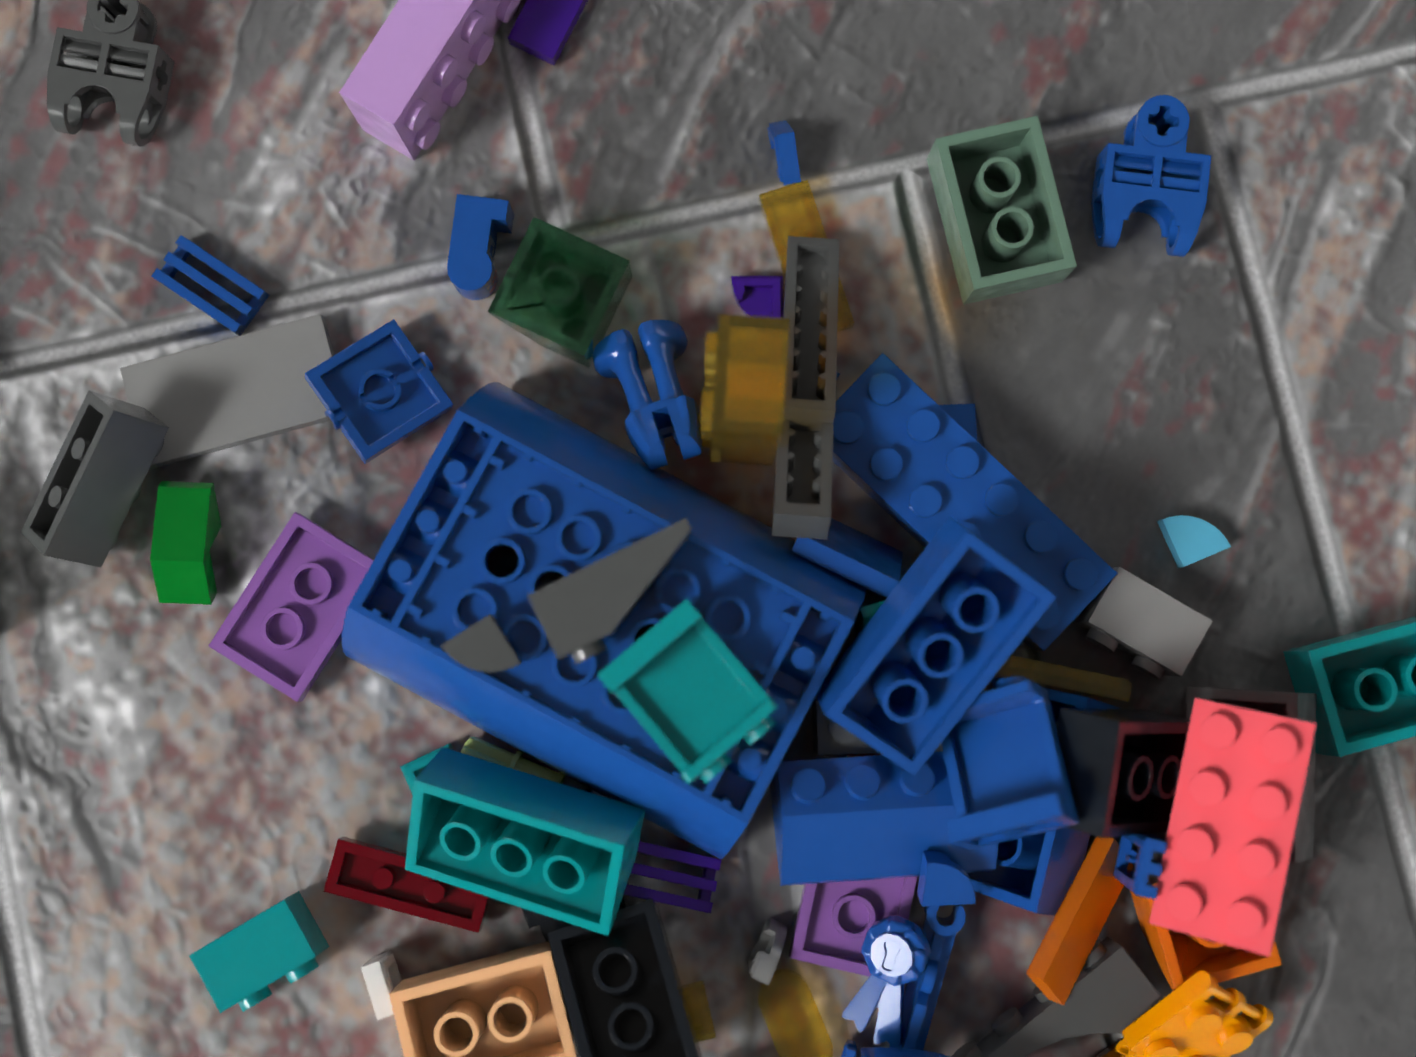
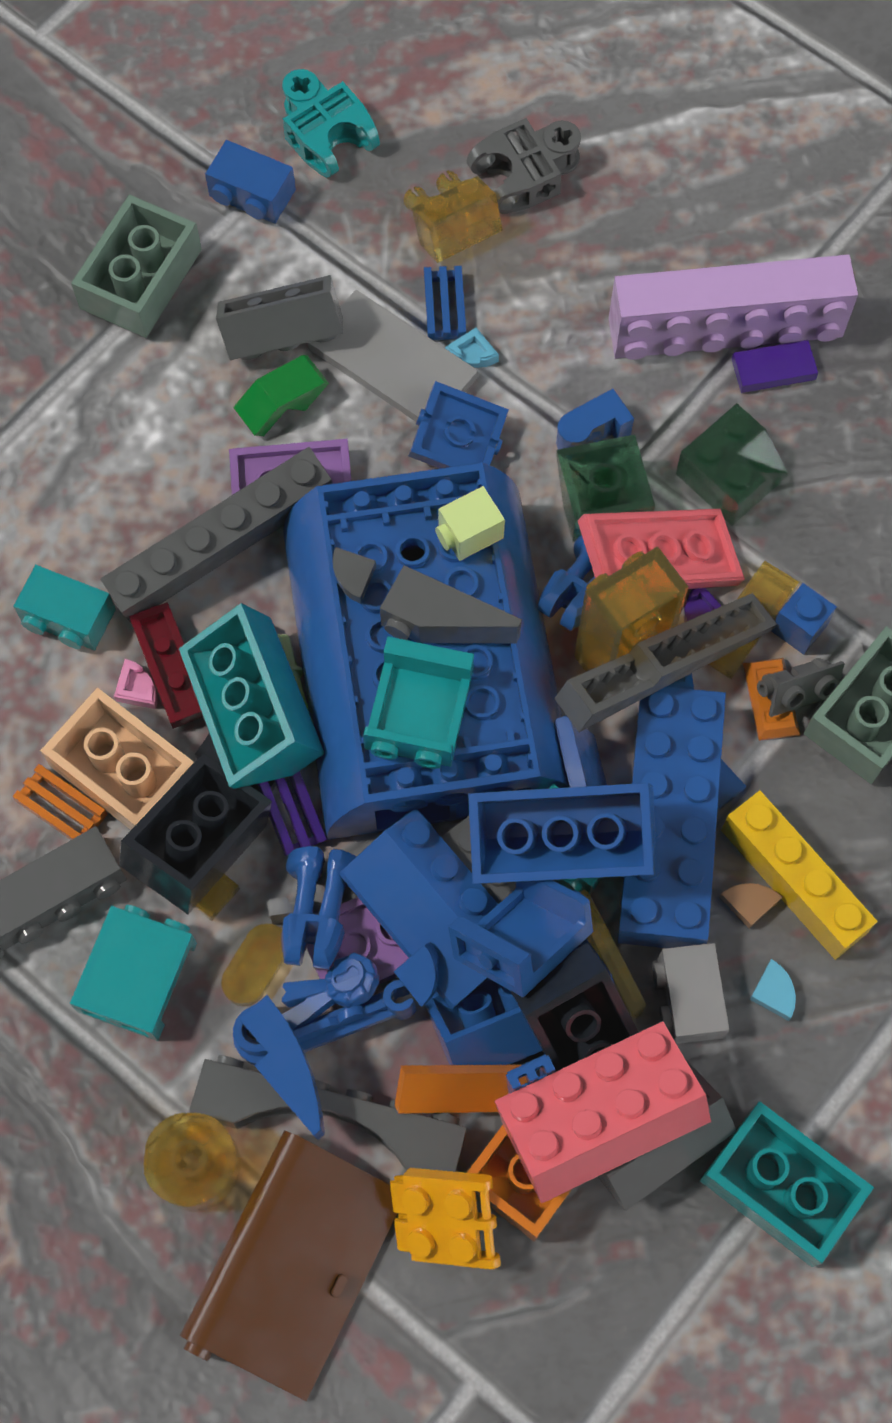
camera: 55 degrees right, 15 degrees down
(118, 199) = (455, 218): none -> clear yellow brick
(290, 298) = (474, 349): none -> medium azure tile
(305, 737) = (214, 536): none -> dark grey brick
(381, 978) = (102, 679): white tile -> none
(403, 934) = (135, 686): none -> bright pink tile
(526, 483) = (470, 523): none -> yellowish green brick
(633, 141) = (732, 464): none -> clear green slope
(675, 293) = (691, 540): none -> coral tile
(783, 141) = (803, 556): blue tile -> none
(805, 972) = (302, 925): none -> blue piece
(853, 207) = (803, 618): none -> blue brick
(902, 305) = (768, 727): none -> orange tile
(921, 286) = (802, 687): none -> dark grey hinge
(1090, 492) = (750, 901): none -> medium nougat tile
(1106, 428) = (798, 875): none -> yellow brick

